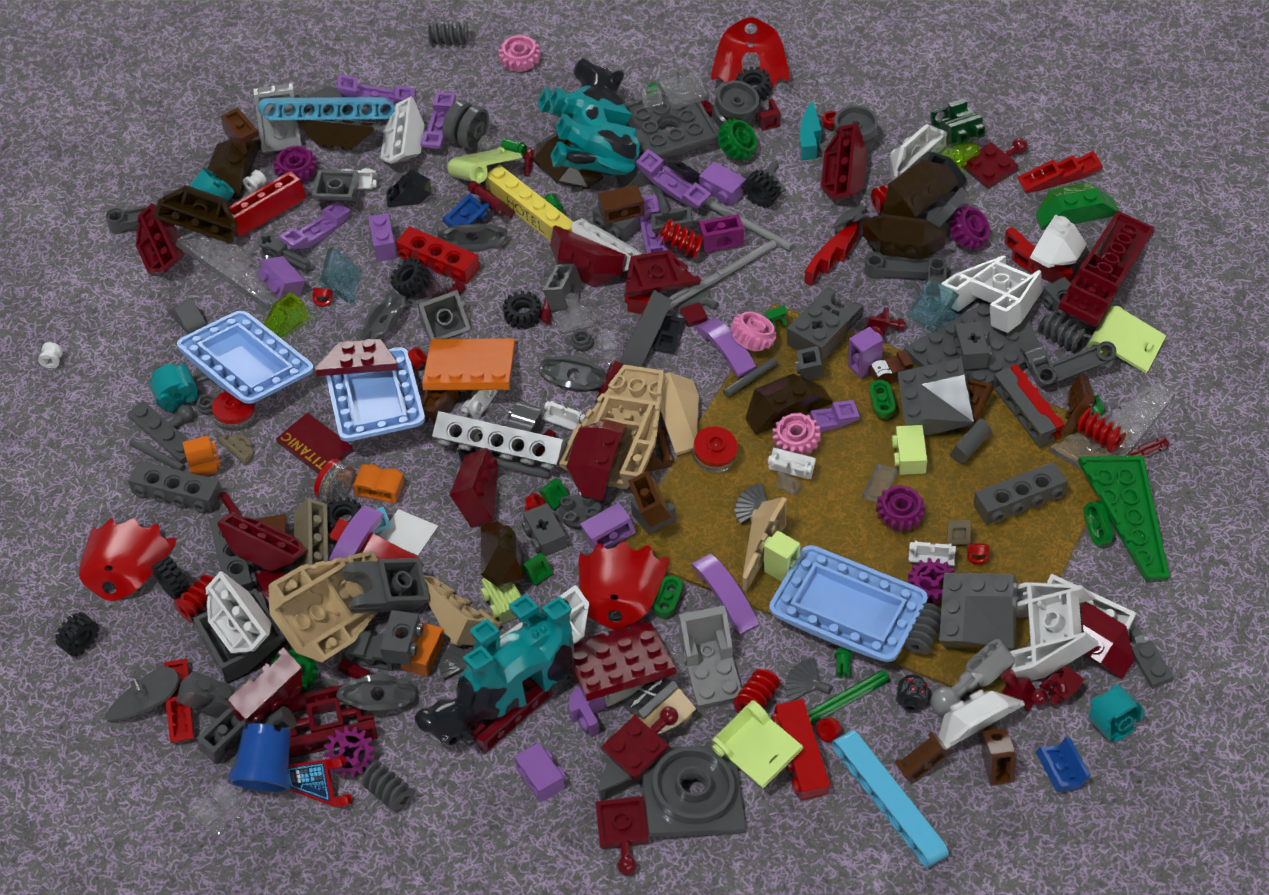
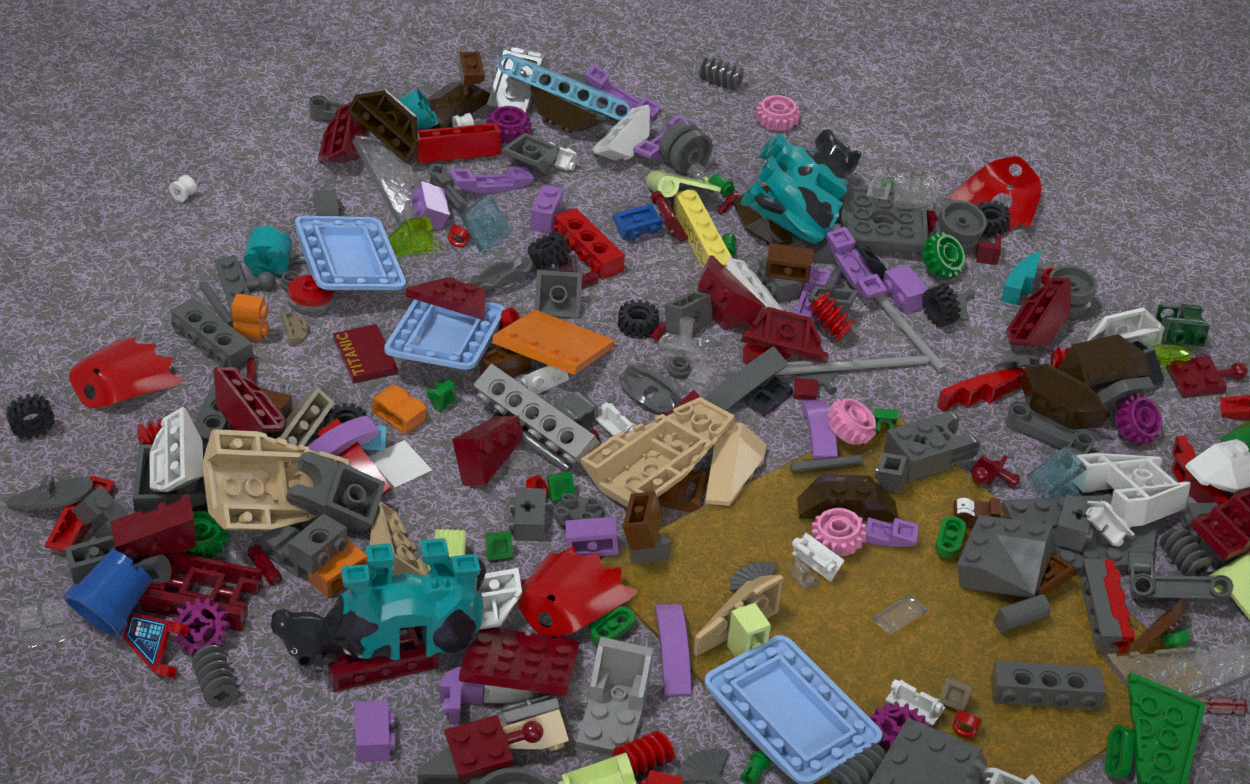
camera: 20 degrees right, 10 degrees down
(170, 577) = (148, 403): black tyre -> none
(334, 481) = (356, 385): clear piece -> none
(395, 691) = (245, 577): dark grey piece -> none
(407, 455) = (442, 395): none -> green tile
(409, 190) = (599, 181): black slope -> none
(488, 236) = (647, 244): dark grey piece -> none
(501, 555) = (467, 516): dark brown wedge -> none
(595, 457) = (619, 467): dark red wedge -> none
(714, 449) = (745, 510): red piece -> none
(721, 233) = (876, 328): magenta brick -> none
(864, 350) = (955, 481): medium lavender brick -> none
(897, 518) = (906, 644): magenta gear -> none
(910, 449) = (951, 594): yellowish green brick -> none
(998, 334) = (1102, 515): none -> white hinge
(1099, 431) = (1170, 658): red piece -> none

